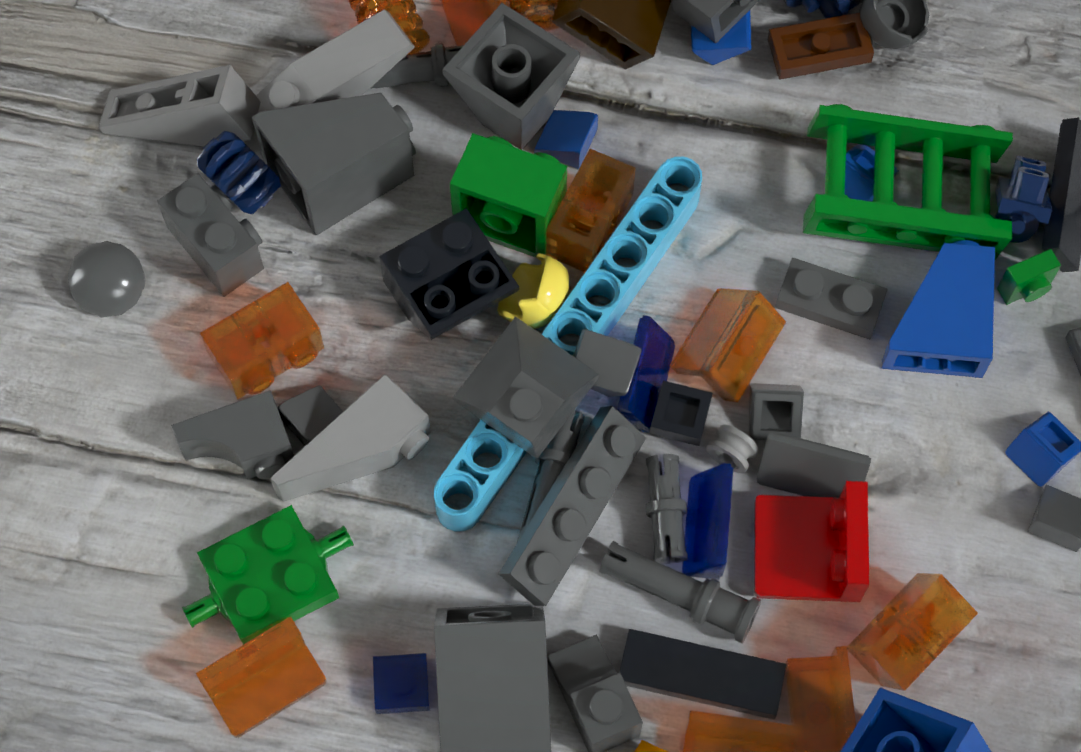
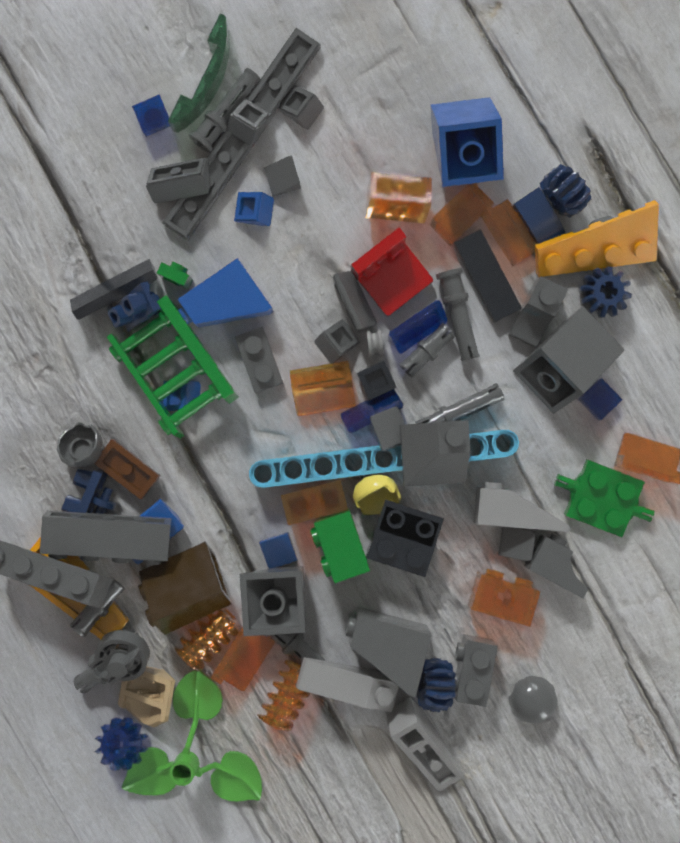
camera: 130 degrees left, 20 degrees up
(572, 506) = (463, 390): dark grey plate -> none

